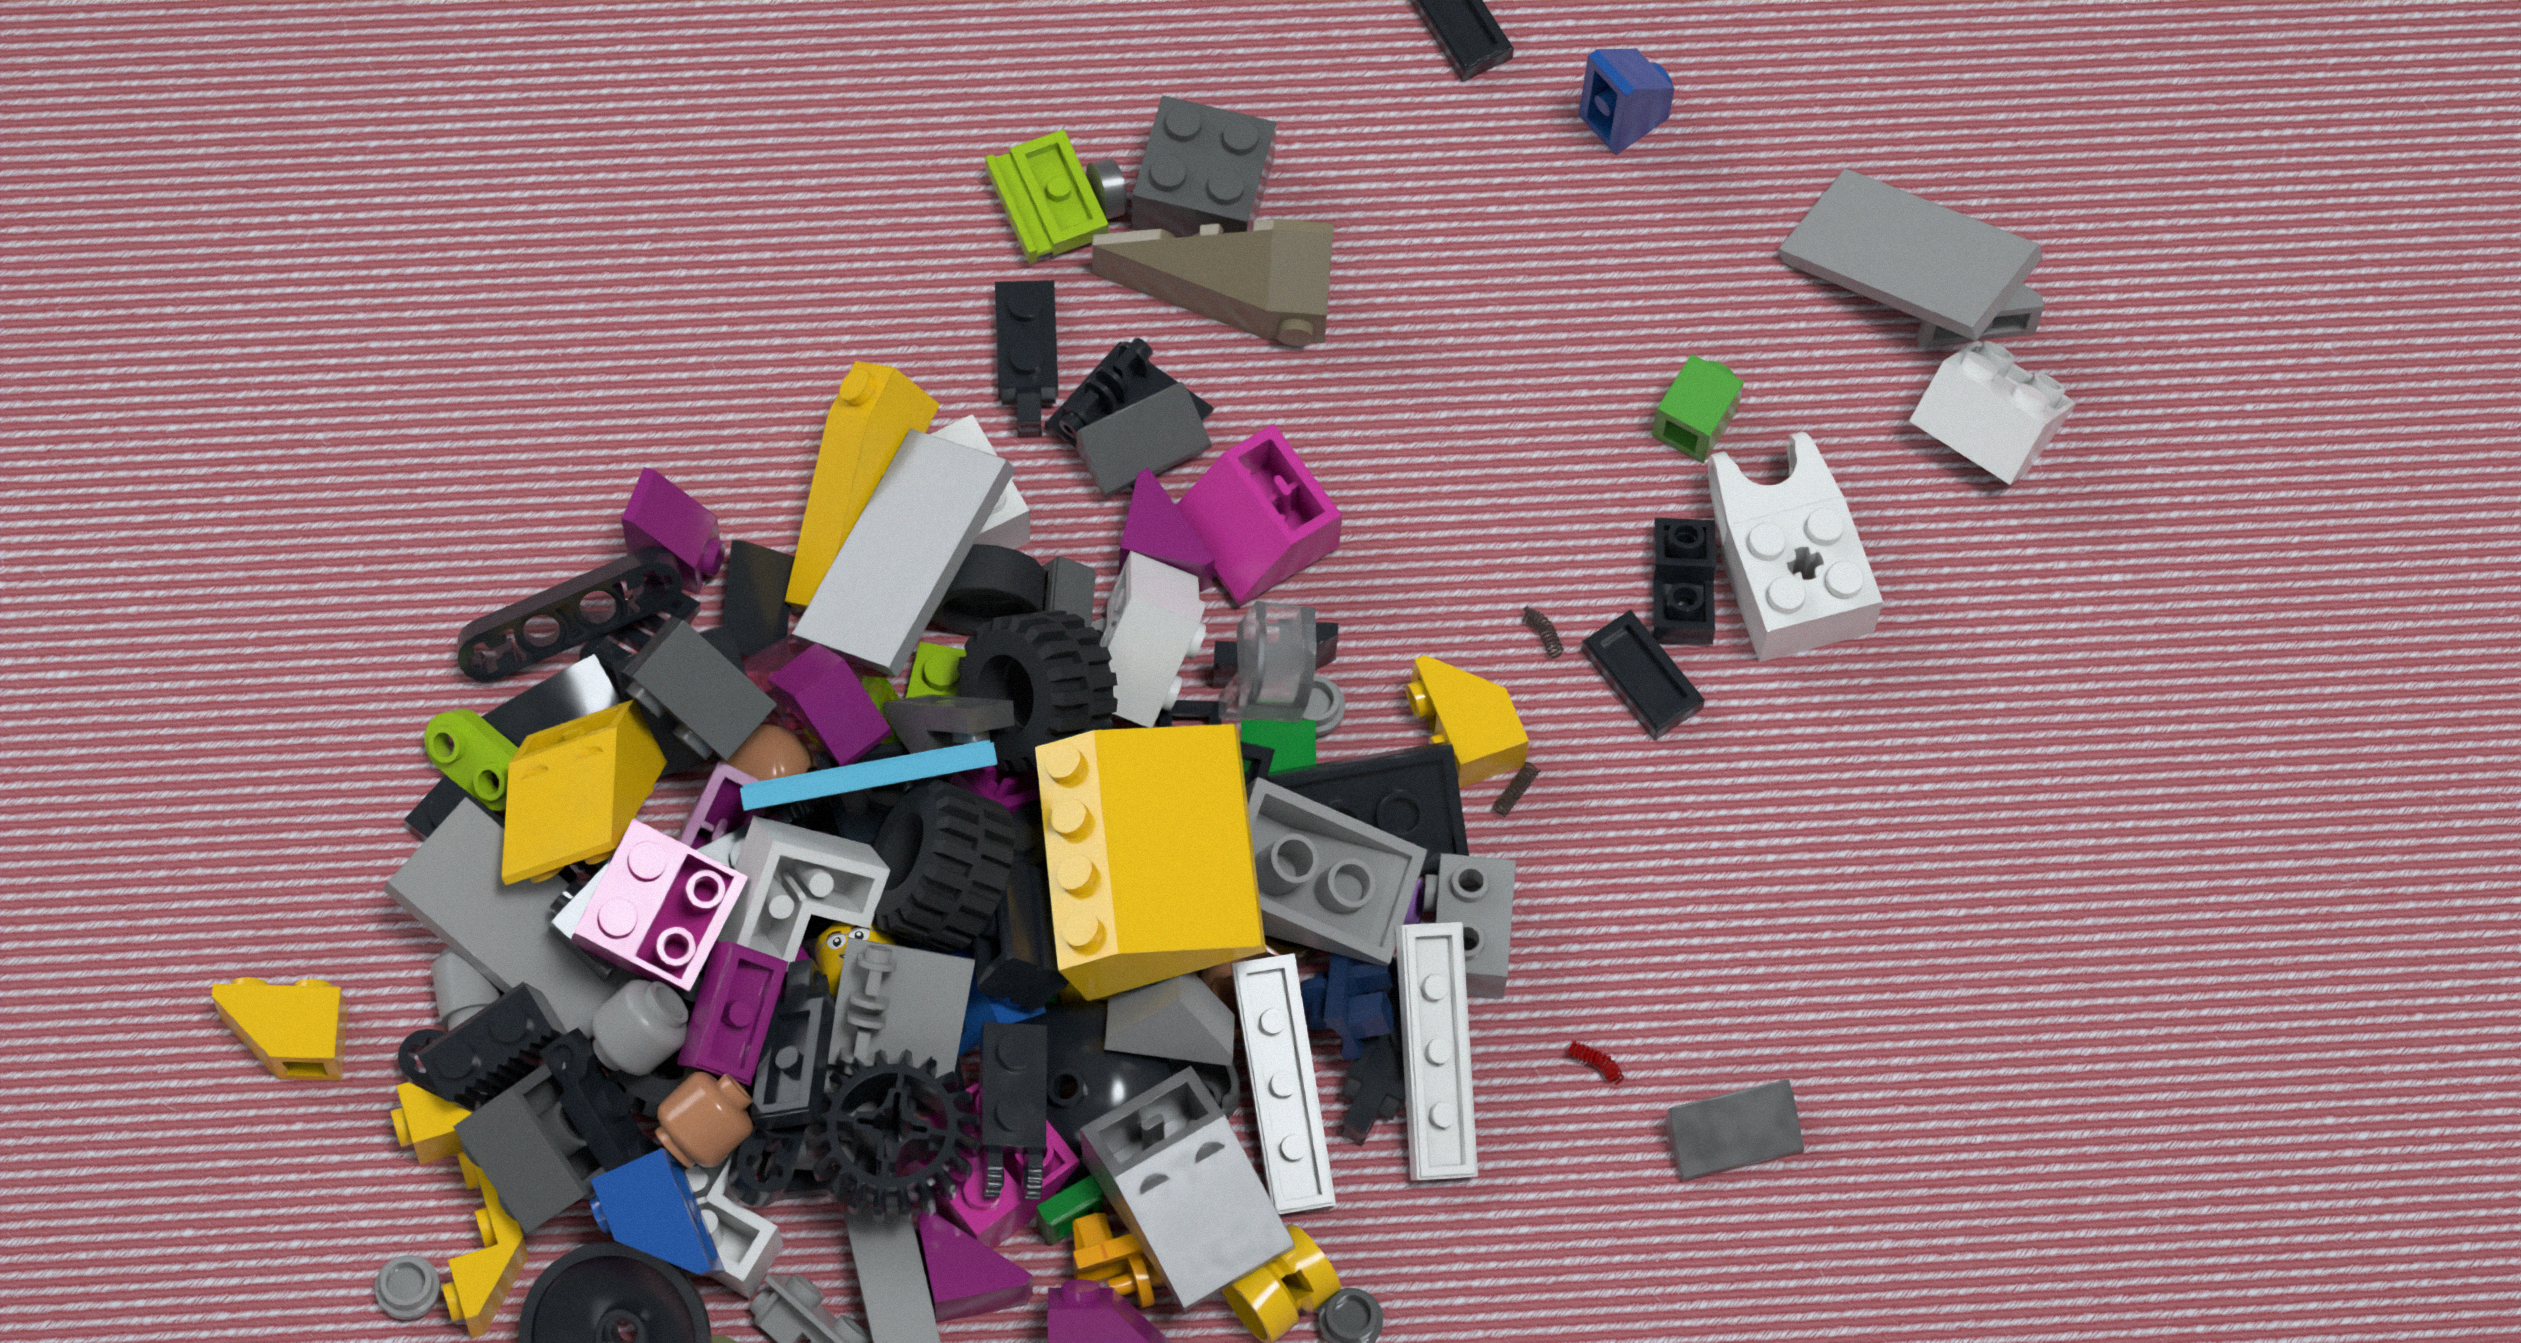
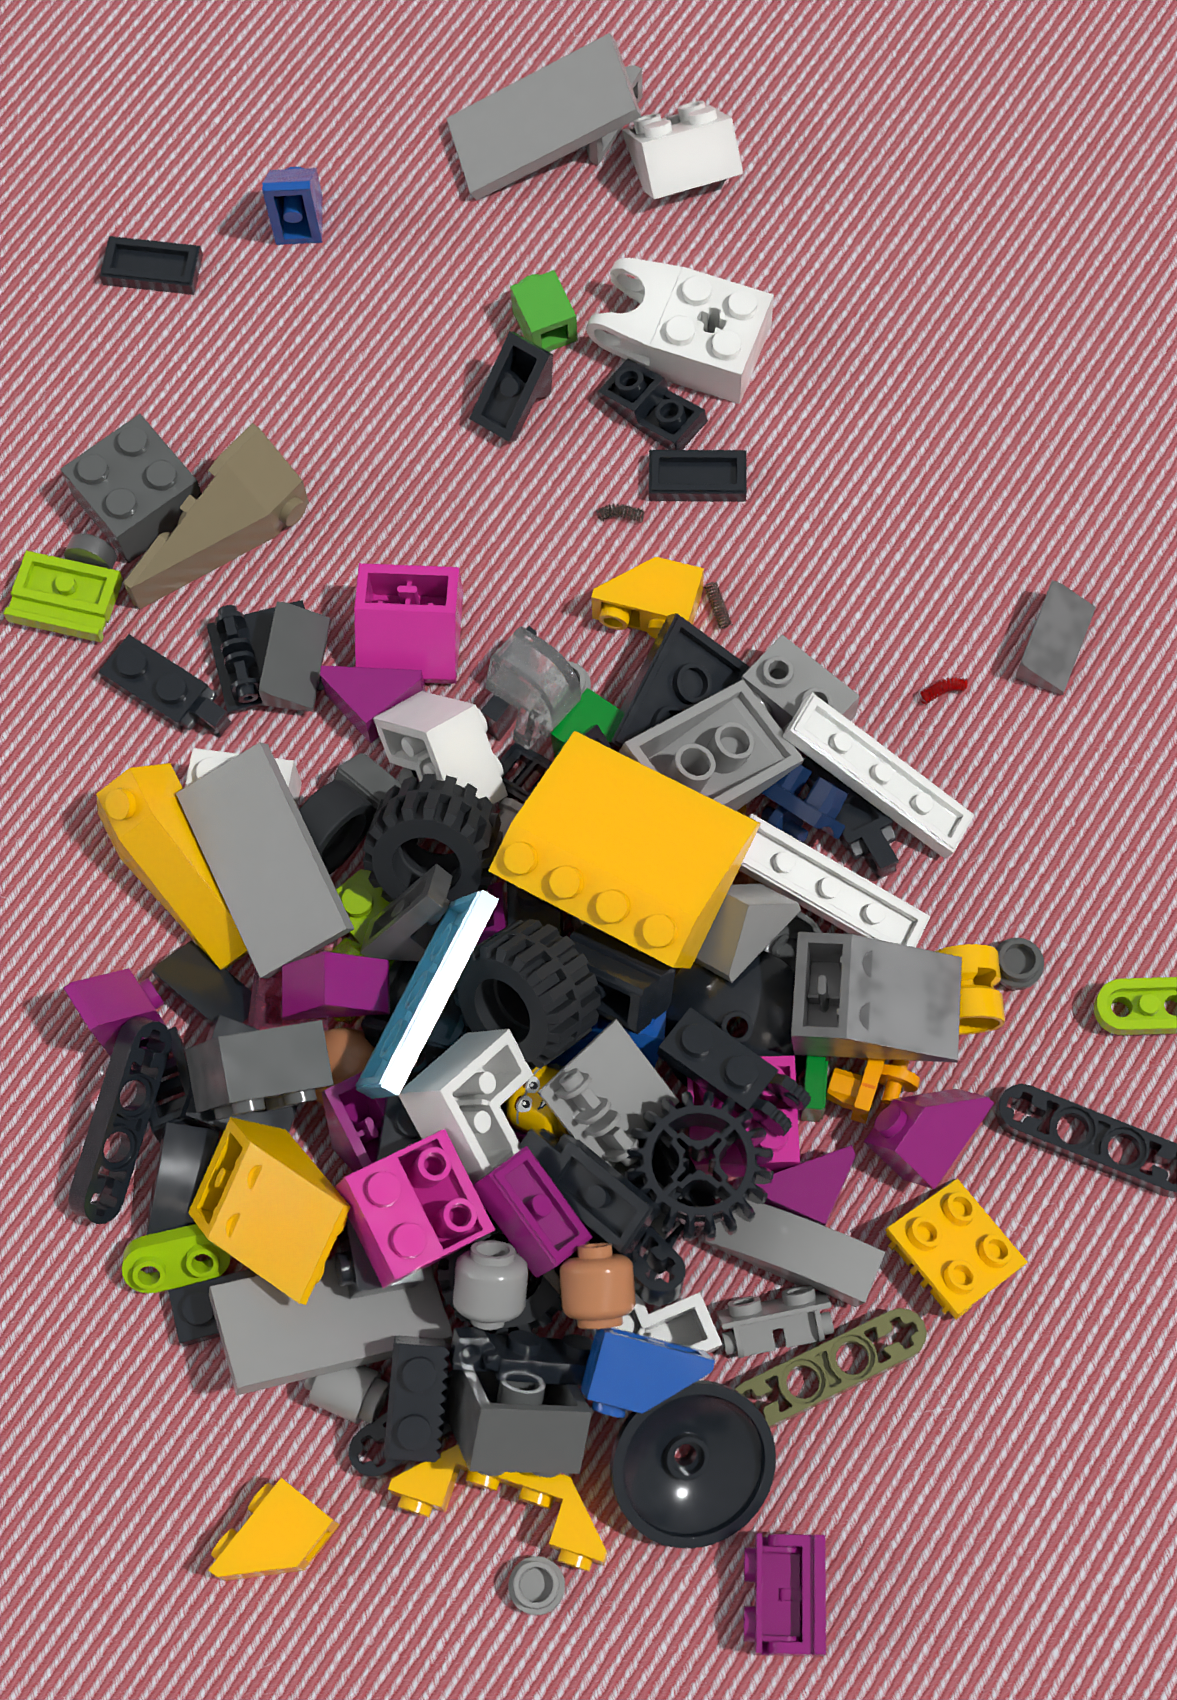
camera: 45 degrees left, 5 degrees up
(1587, 434) = (514, 383): none -> black slope

